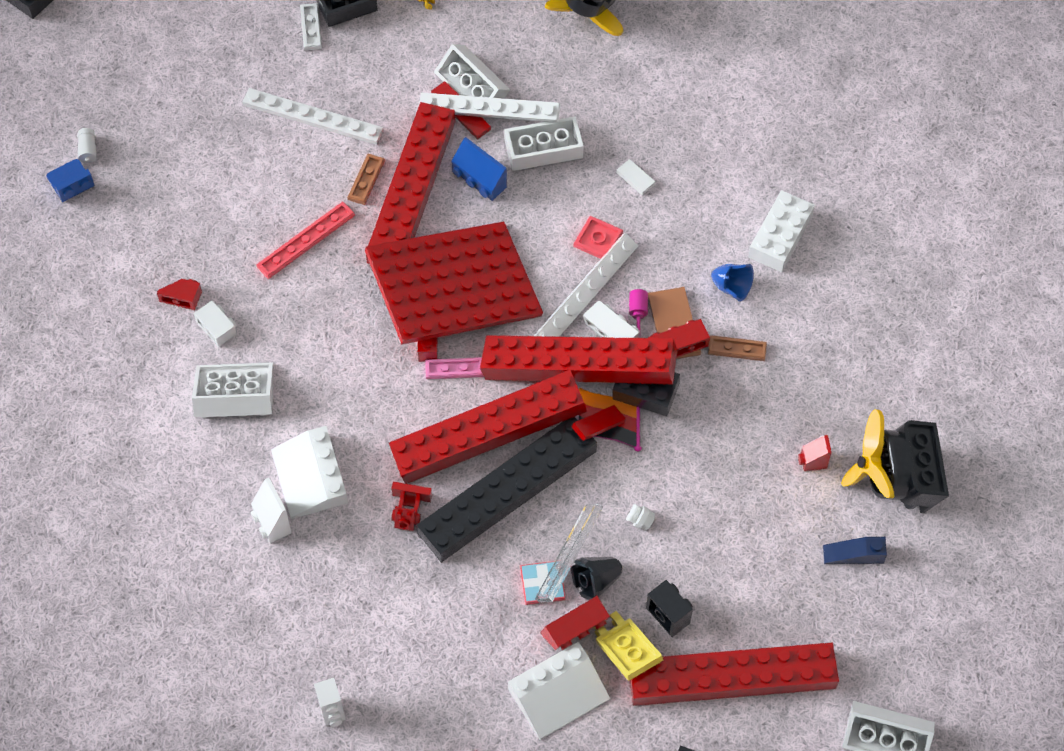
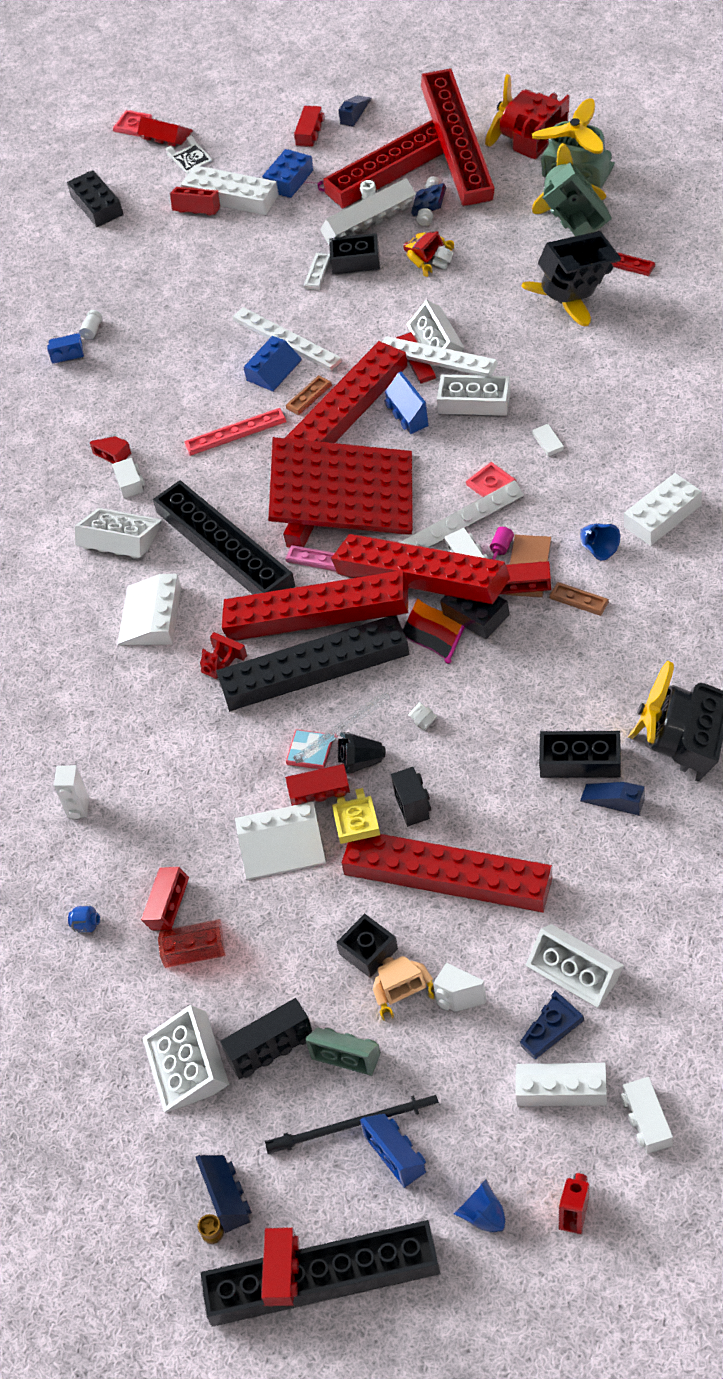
camera: 30 degrees right, 10 degrees down
(270, 513) = (98, 631): white slope -> none
(312, 151) = (271, 364): none -> blue slope
(354, 375) = (222, 540): none -> black brick
(598, 422) = (416, 626): red tile -> none
(809, 517) = (580, 754): none -> black brick
(815, 454) = (610, 702): slope -> none

